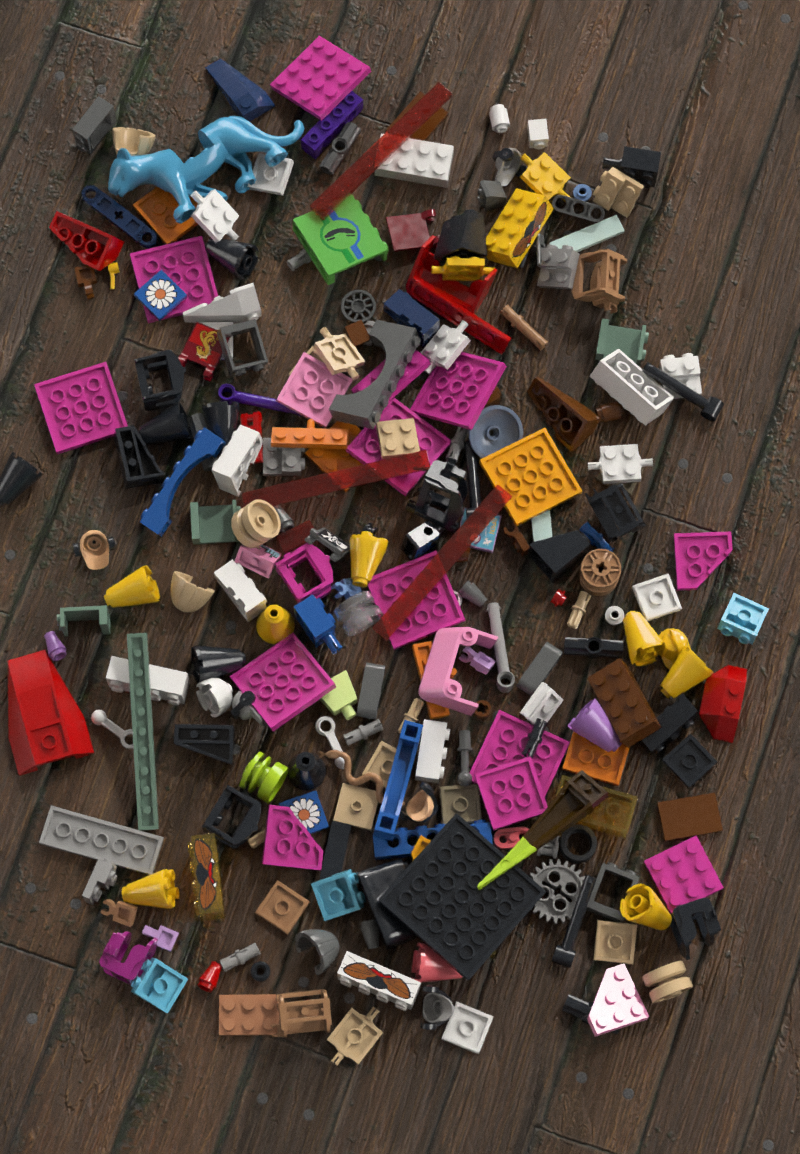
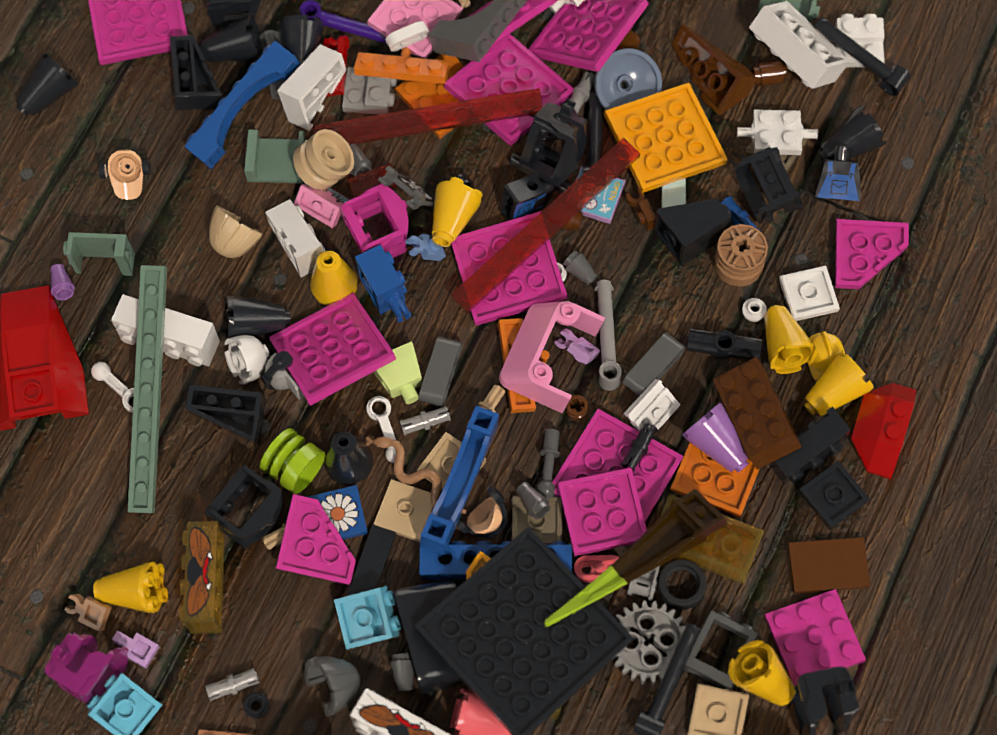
camera: 10 degrees right, 5 degrees down
(101, 840) = (80, 520): light grey plate -> none
(101, 877) = (70, 563): light grey plate -> none
(133, 590) = (166, 224): yellow cone -> none
(210, 977) = (189, 708): red cone -> none
(282, 907) = (295, 627): medium nougat tile -> none
(311, 410) = (407, 36): none -> white beam
(358, 613) = (434, 275): clear wheel -> none
(397, 437) = (507, 74): tan plate -> none
(432, 751) = (508, 451): white brick -> none
(456, 790) = (534, 502): none -> flat silver cone
(558, 598) = (686, 282): red plate -> none
(578, 609) = (710, 298): tan axle -> none
(672, 498) = (839, 177): none -> torso
(680, 464) = (856, 131): none -> black cone
(742, 619) = (915, 328): medium azure plate -> none

